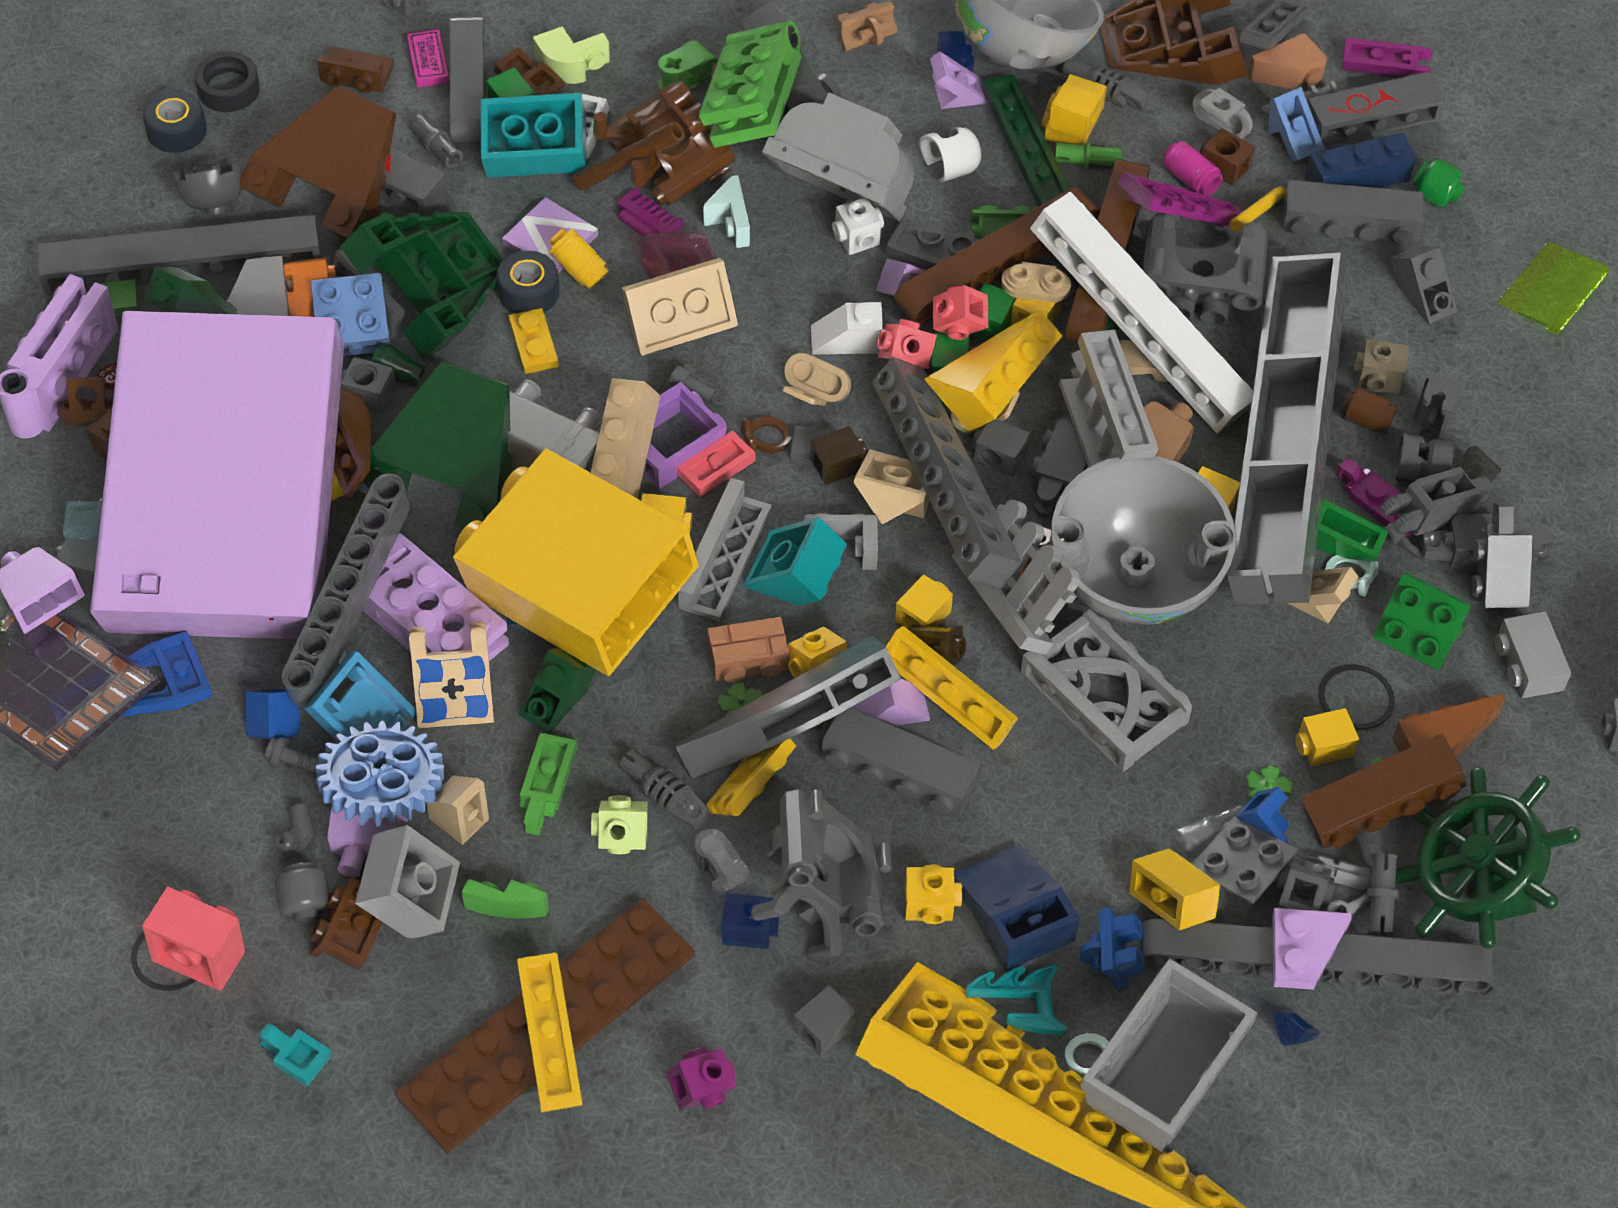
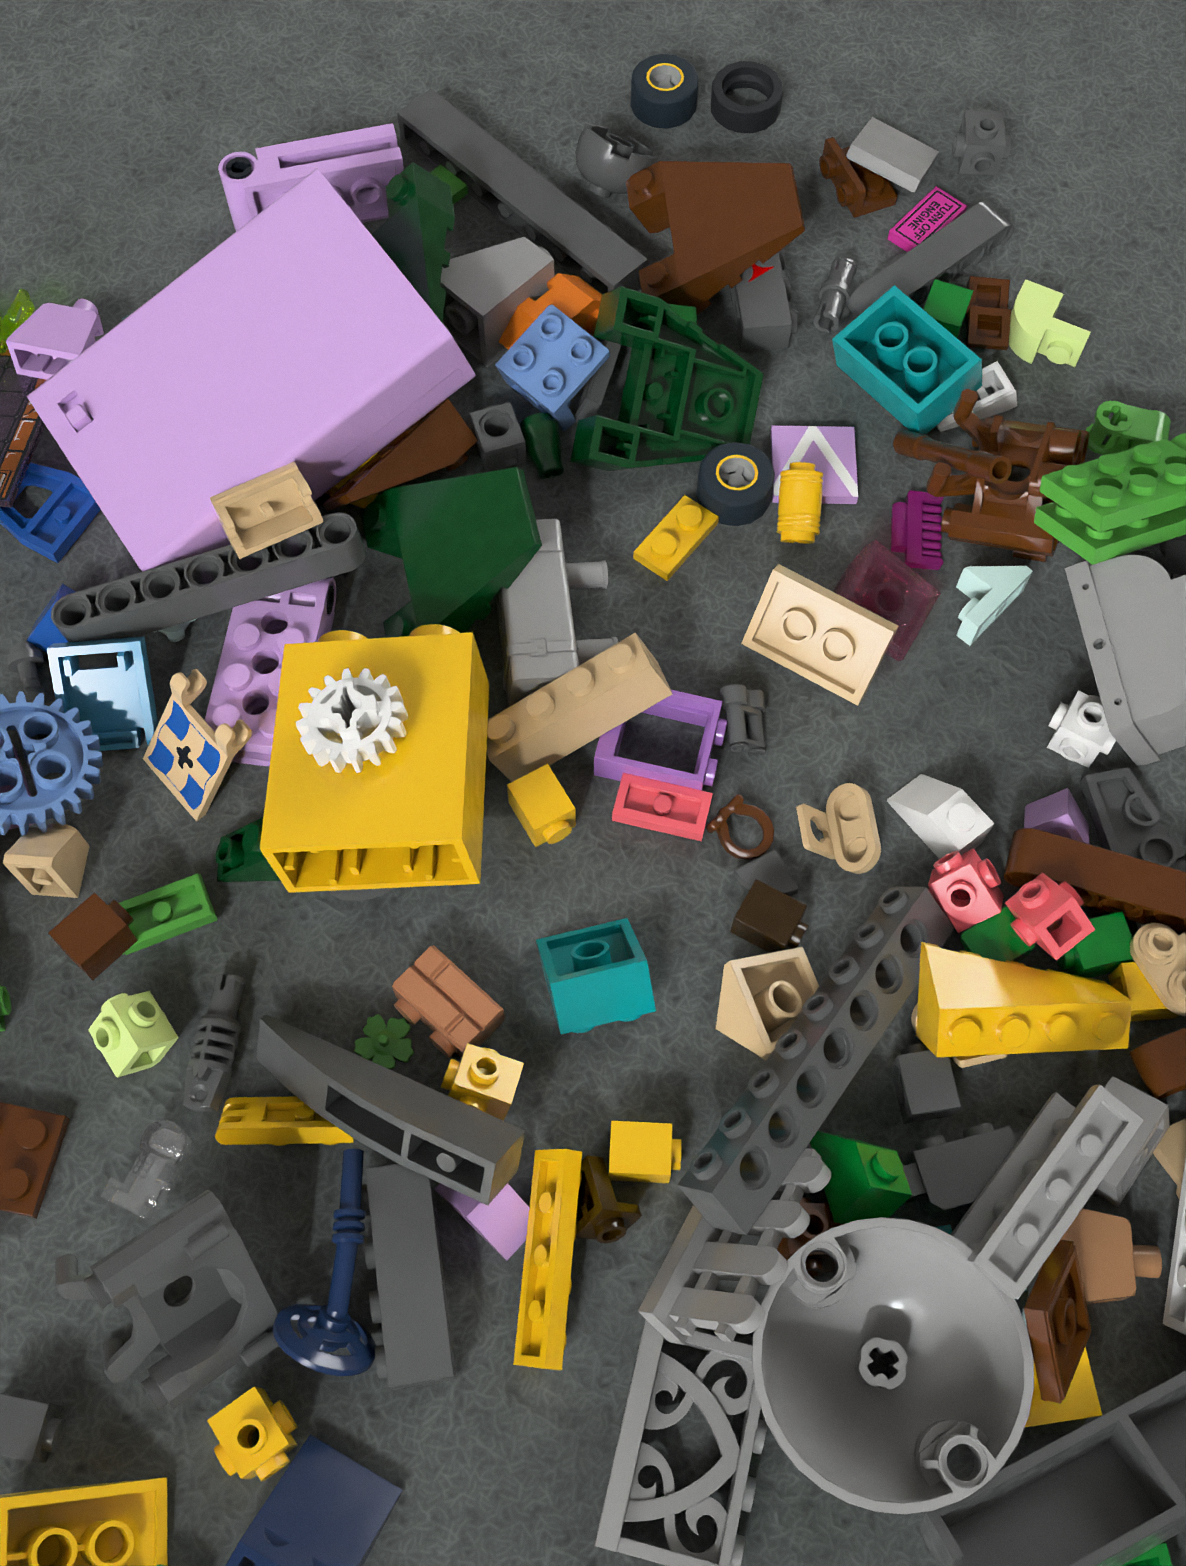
camera: 55 degrees right, 10 degrees up
(340, 513) = (266, 510): none -> tan hinge
(362, 37) = (892, 154): none -> light grey tile
(542, 801) = (95, 934): none -> reddish brown brick
(556, 535) = (355, 716): none -> white gear
(711, 546) = (554, 874): light grey fence -> none
(741, 928) = (91, 1237): clear blue brick -> none
(859, 528) = (675, 1030): light grey bracket -> none
(901, 813) = (333, 1319): none -> dark blue dish
(1039, 495) = (864, 1178): none -> green slope
(1181, 455) = (1057, 1321): none -> reddish brown tile

